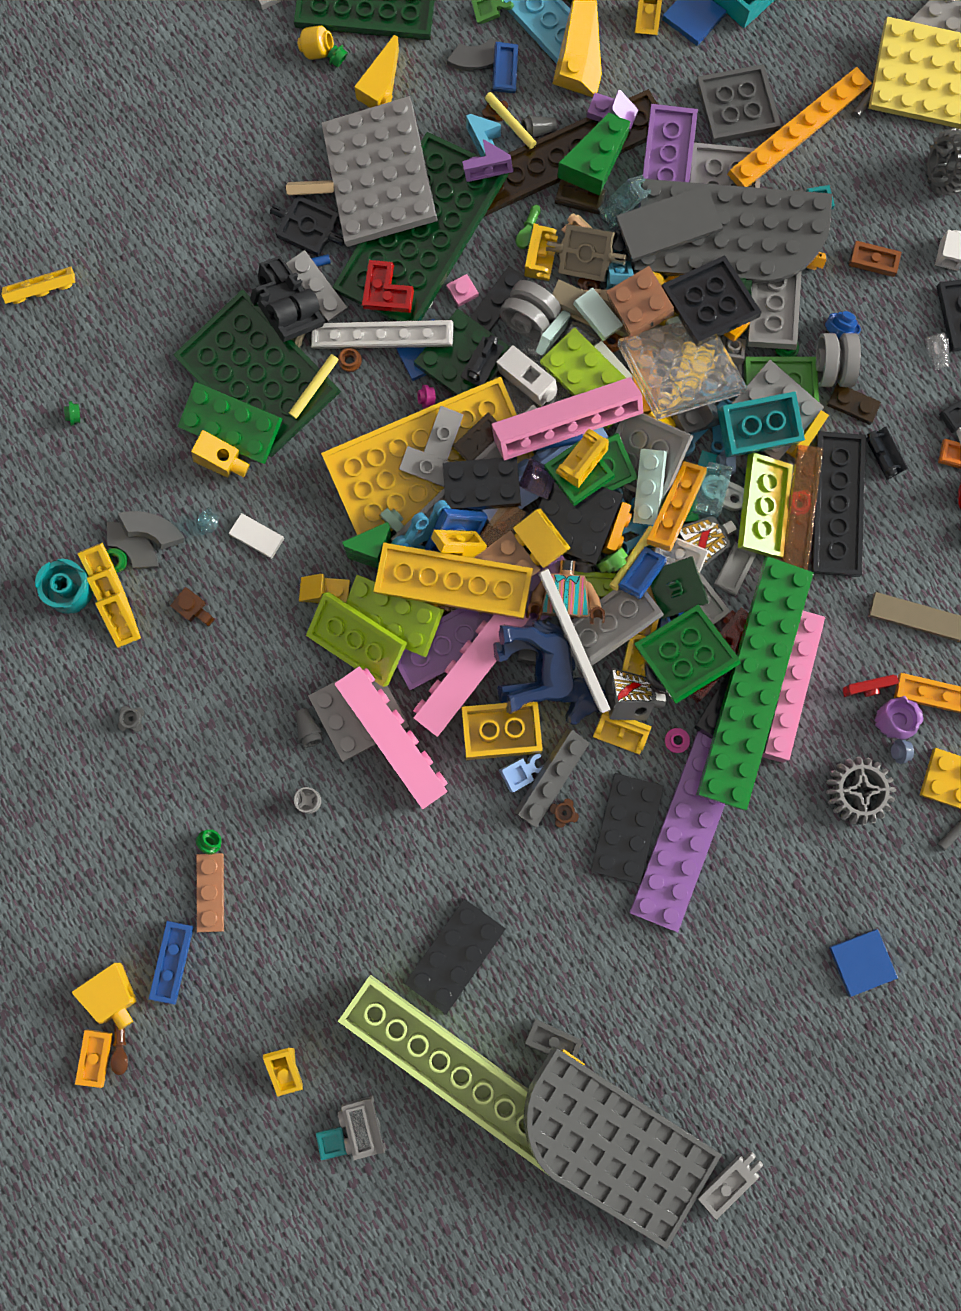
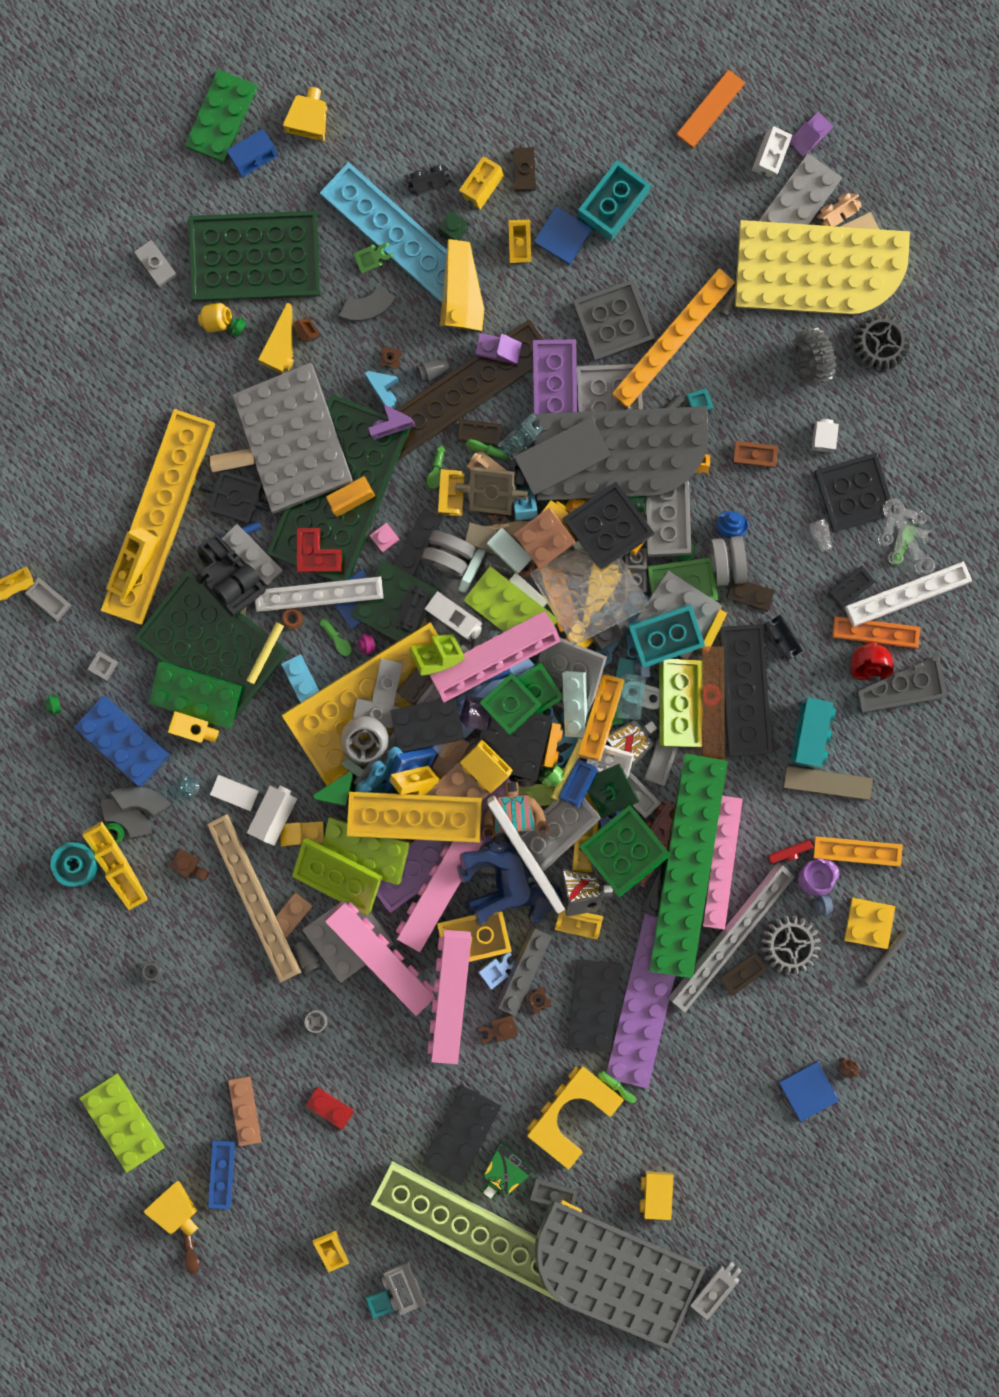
camera: 10 degrees left, 5 degrees up
(67, 886) = (122, 1122): none -> lime plate
(88, 304) = (48, 599): none -> light grey tile
(94, 1058) = (170, 1263): light orange plate -> none
(134, 380) = (103, 665): none -> light grey plate
(141, 461) = (122, 741): none -> blue brick
(183, 270) = (131, 561): none -> yellow slope
(208, 841) = (238, 1064): green plate -> none
(220, 236) = (163, 507): none -> yellow plate
(259, 654) = (254, 898): none -> tan tile
(292, 683) = (292, 914): none -> medium nougat hinge
(294, 563) = (272, 815): none -> white brick
(308, 903) = (330, 1108): none -> red plate
(347, 417) = (300, 677): none -> medium azure brick
(389, 485) = (361, 725): none -> light grey wheel
(399, 395) = (342, 645): none -> bright green piece
(409, 68) = (306, 330): none -> reddish brown plate
(432, 235) = (350, 496): none -> light orange panel
(465, 792) = (450, 996): none -> bright pink brick
(500, 1006) = (505, 1172): none -> torso
(505, 67) = (393, 316): blue tile -> none
(508, 408) = (438, 656): none -> lime slope
(510, 120) = (405, 370): light yellow bar -> none
(519, 840) = (503, 1029): none -> reddish brown plate
(554, 963) = (581, 1085): none -> yellow arch
(573, 206) = (477, 446): none -> bright green piece
(583, 458) = (512, 694): yellow hinge -> none
(595, 155) = (488, 397): green wedge -> none
(641, 923) = (615, 1085): none -> bright green piece
(671, 746) = (620, 923): dark pink plate -> none
(674, 1060) = (657, 1195): none -> yellow brick
(793, 772) = (731, 937): none -> light grey plate
(802, 816) = (743, 974): none -> dark brown plate
(911, 557) = (812, 733): none -> teal brick
(914, 942) = (849, 1068): none -> reddish brown plate

